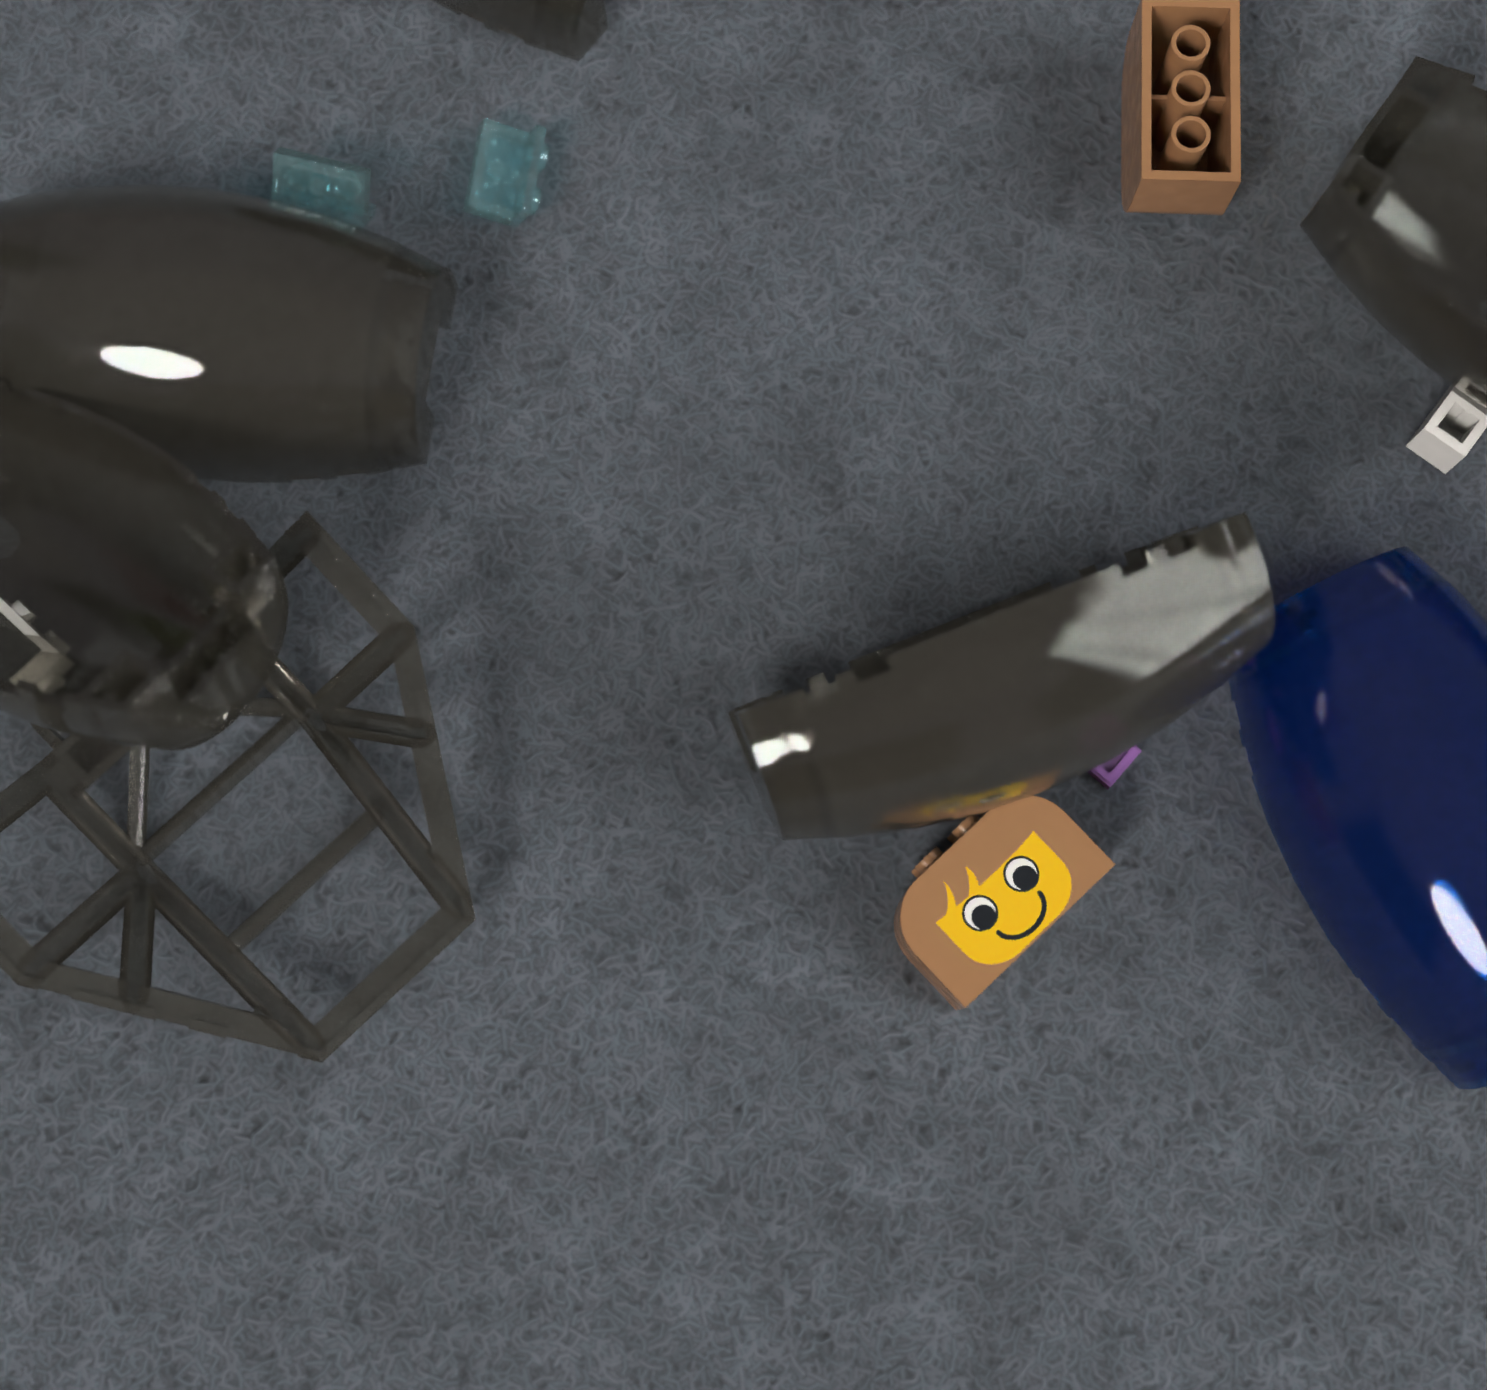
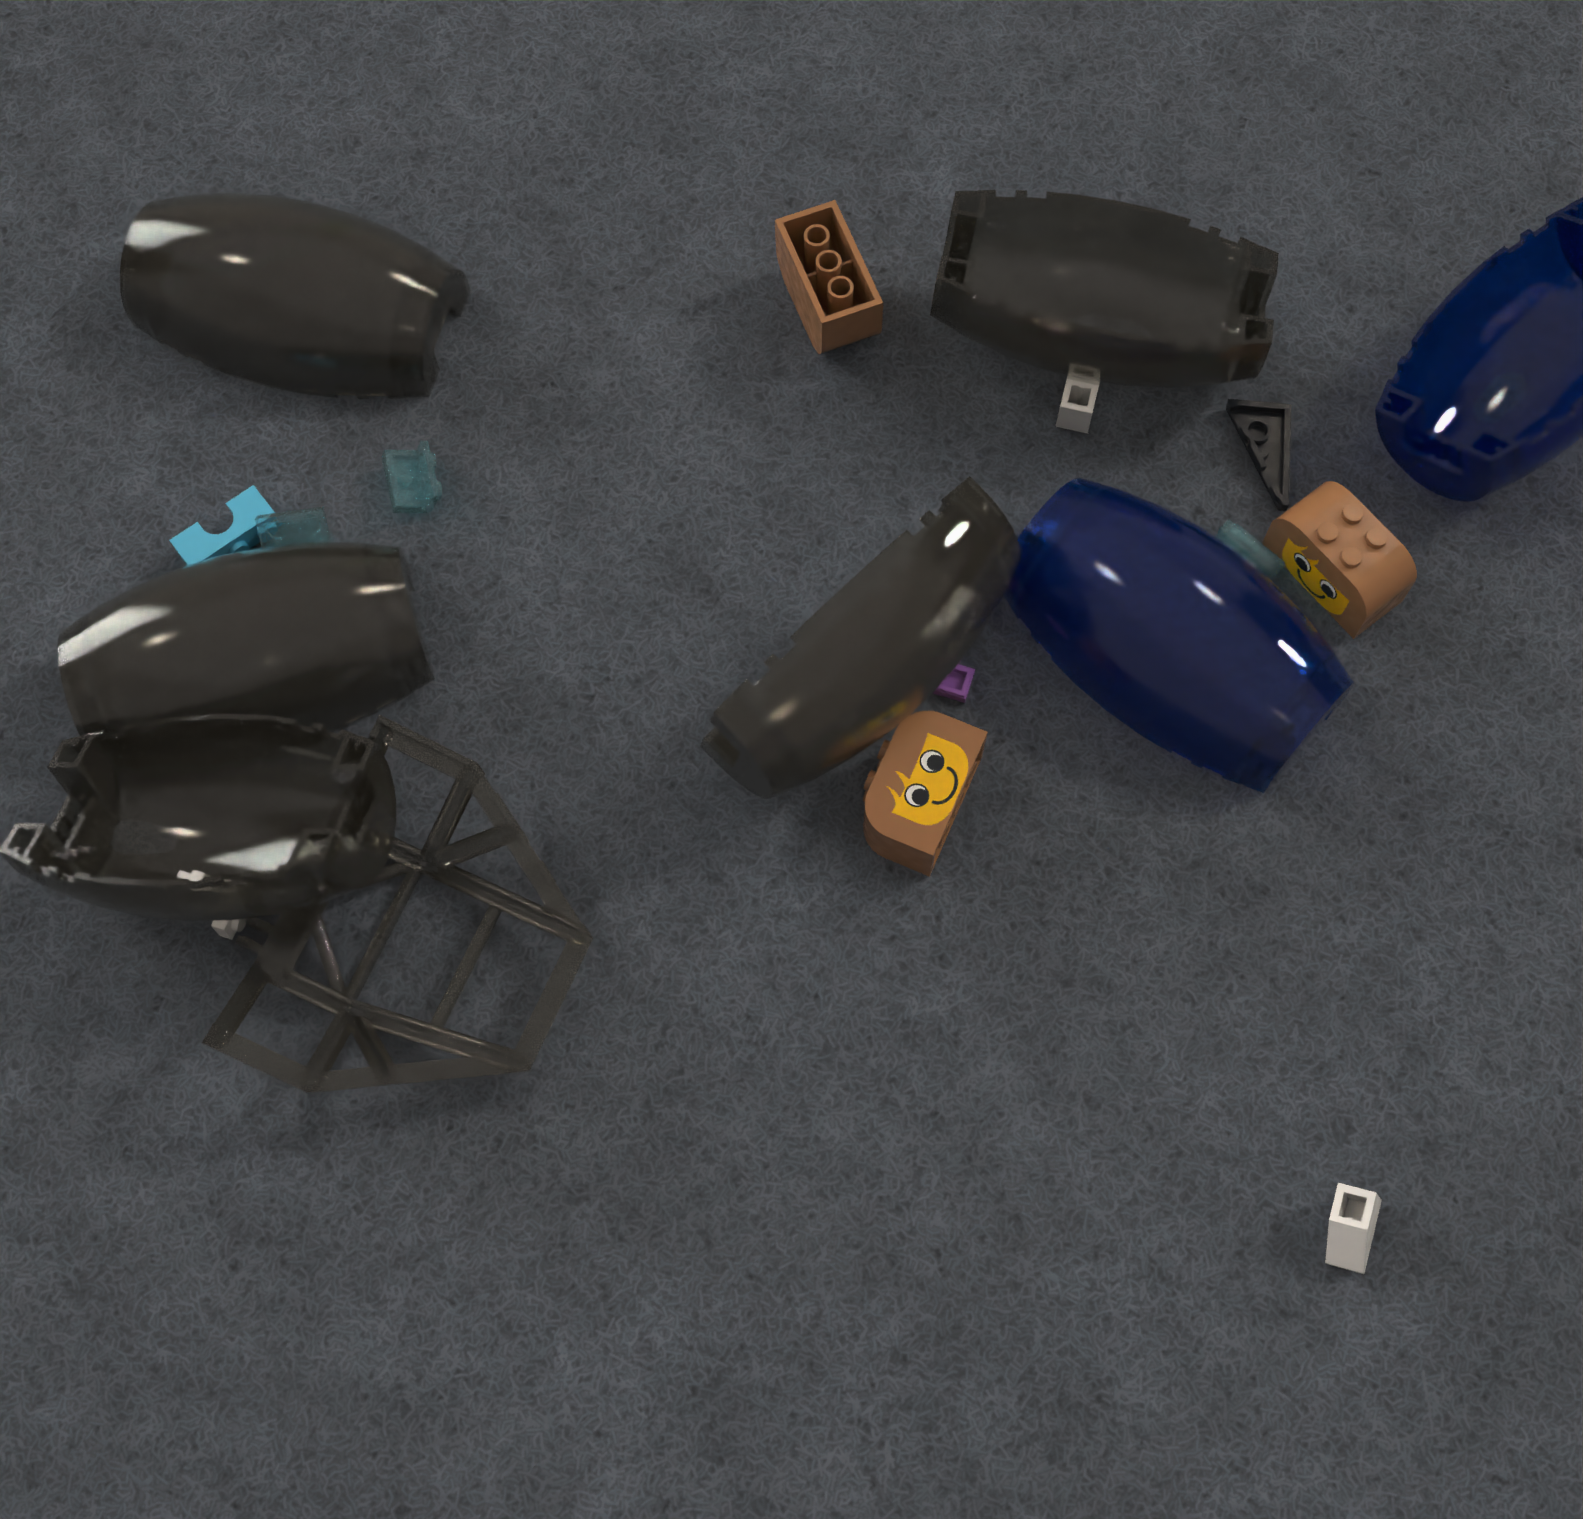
camera: 25 degrees left, 10 degrees down
(195, 161) = (198, 545): none -> medium azure arch

